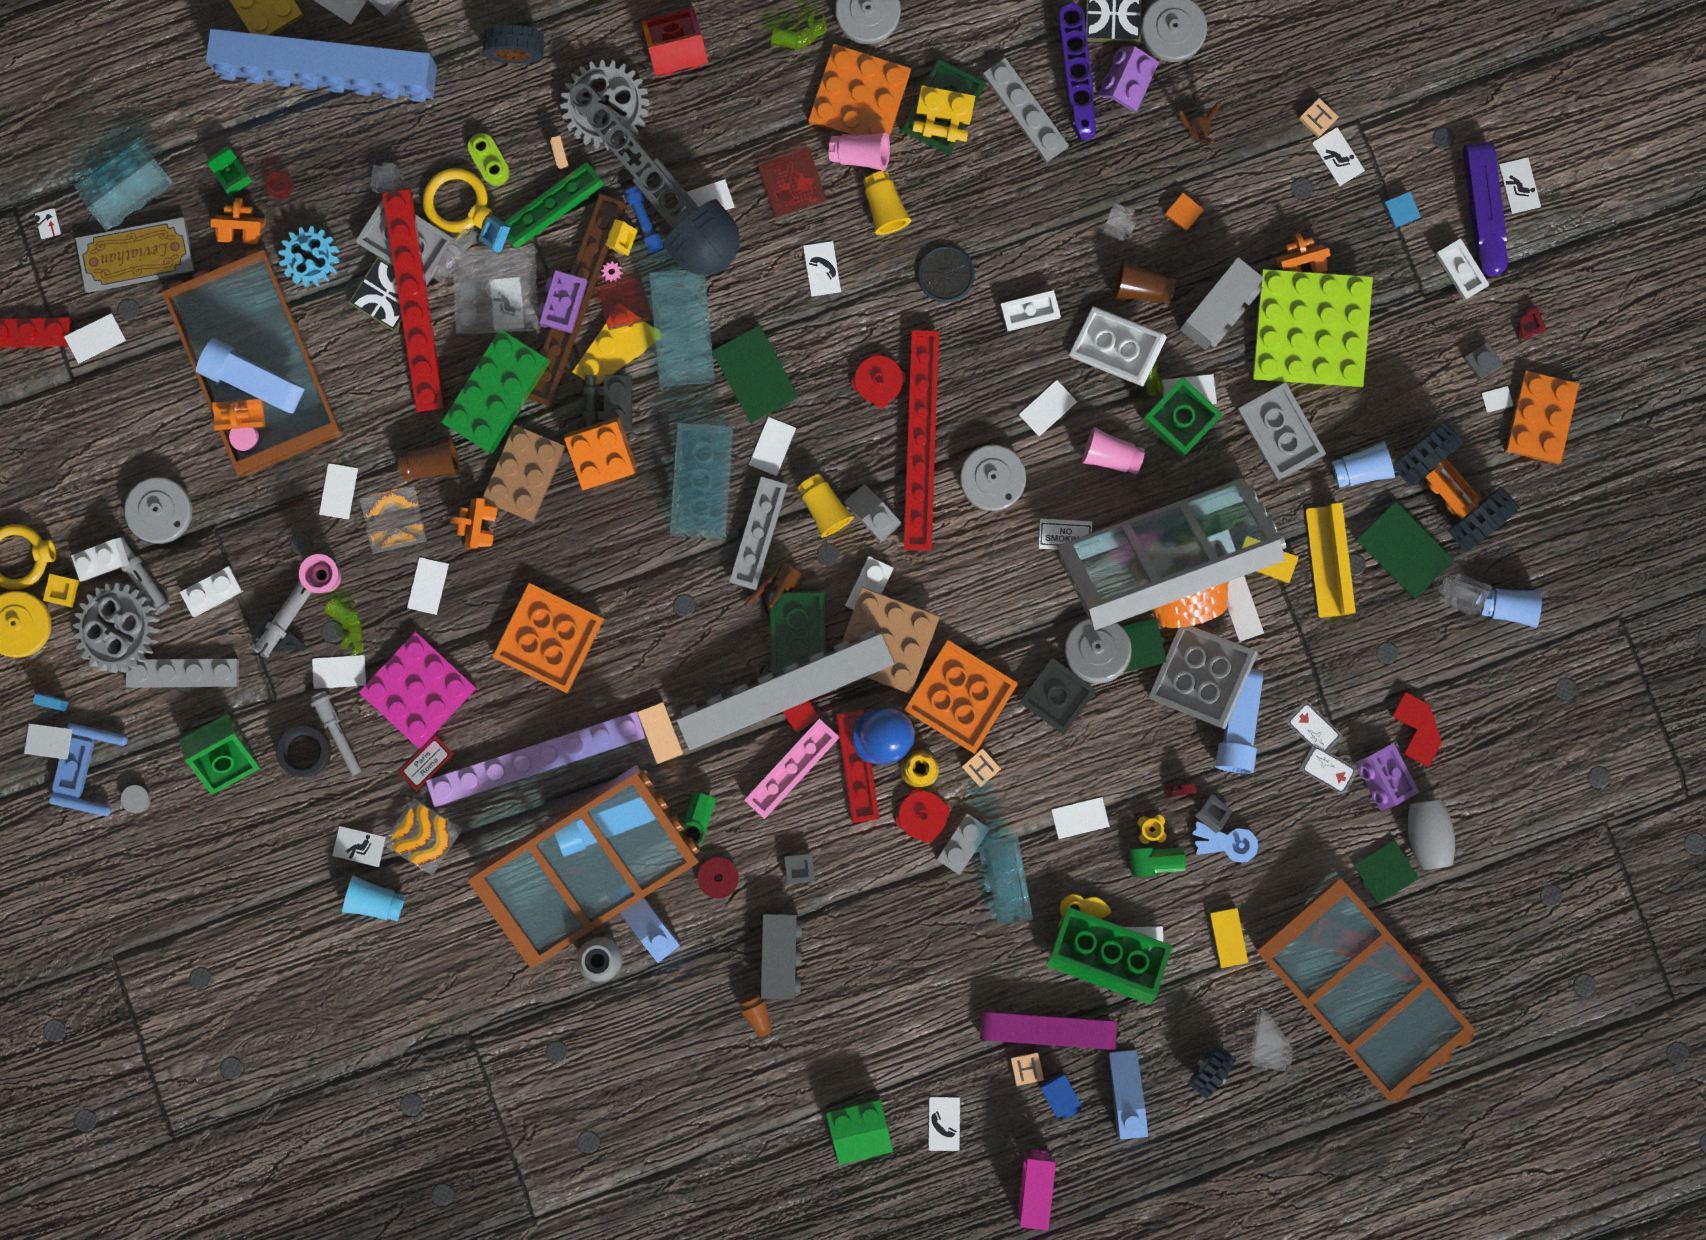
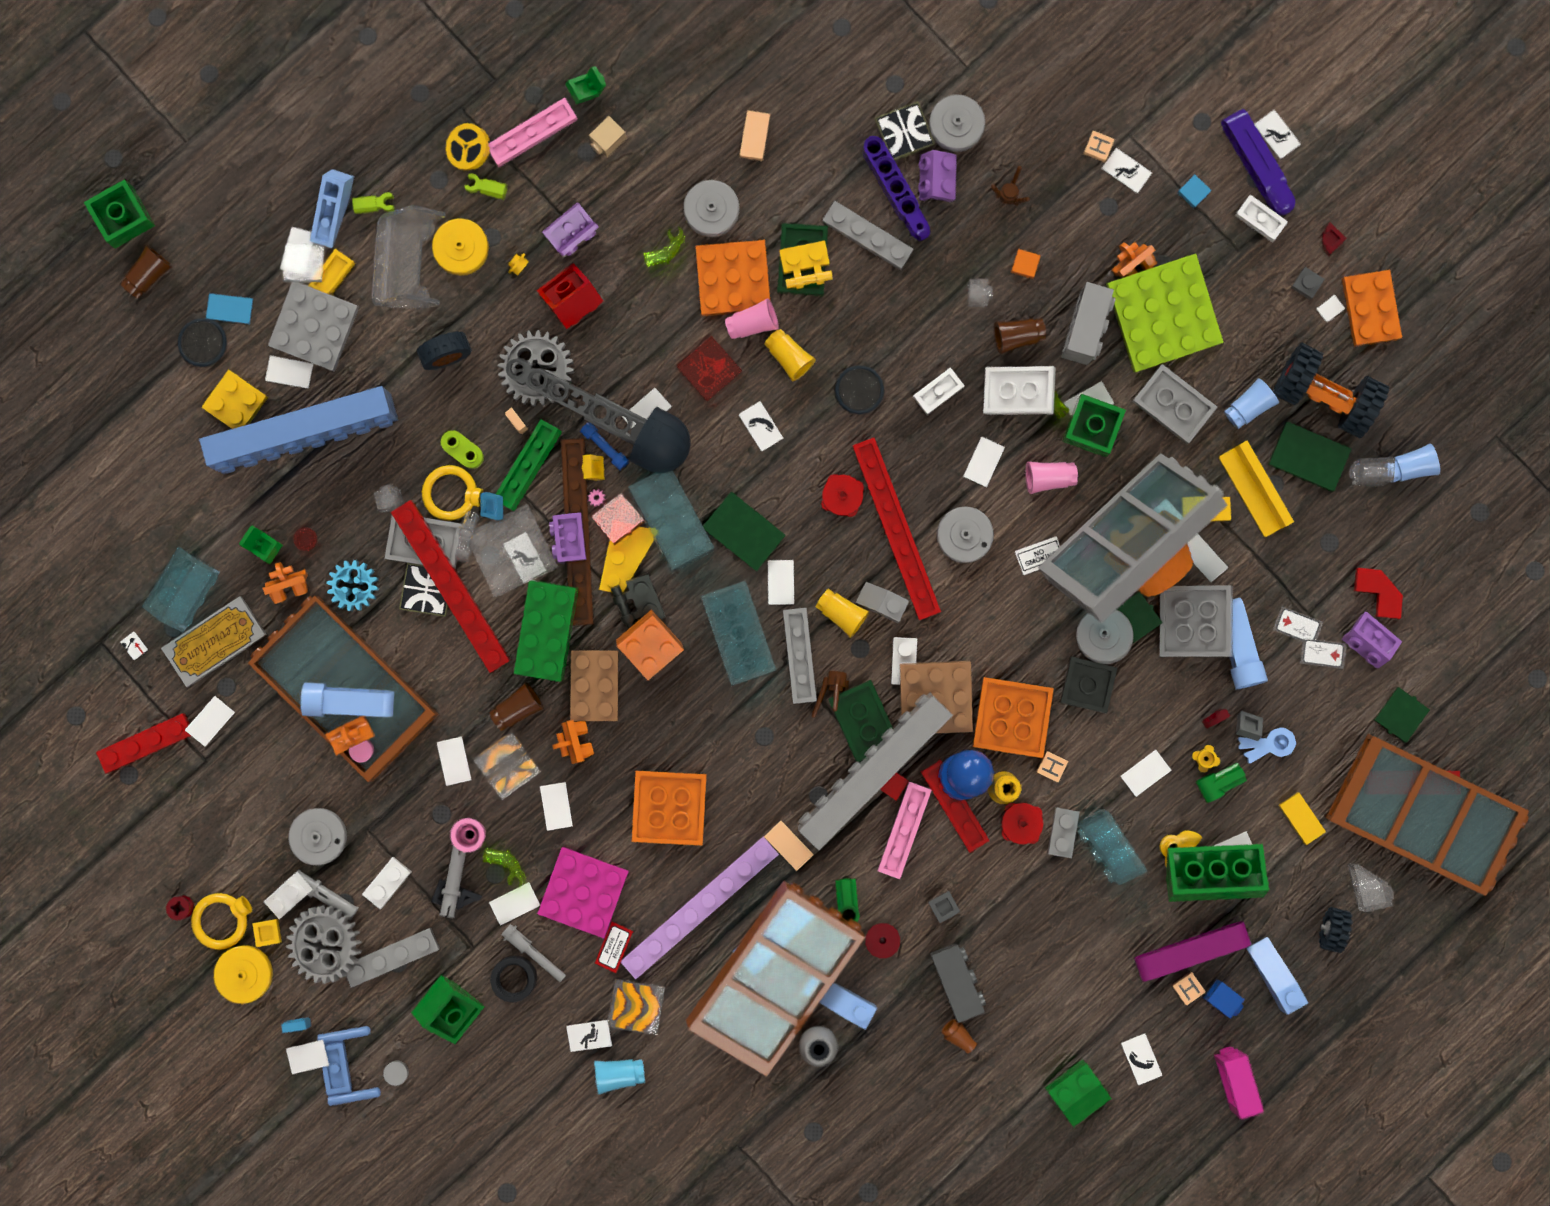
camera: 20 degrees left, 0 degrees up
(1431, 834) = (1426, 671): light grey piece -> none

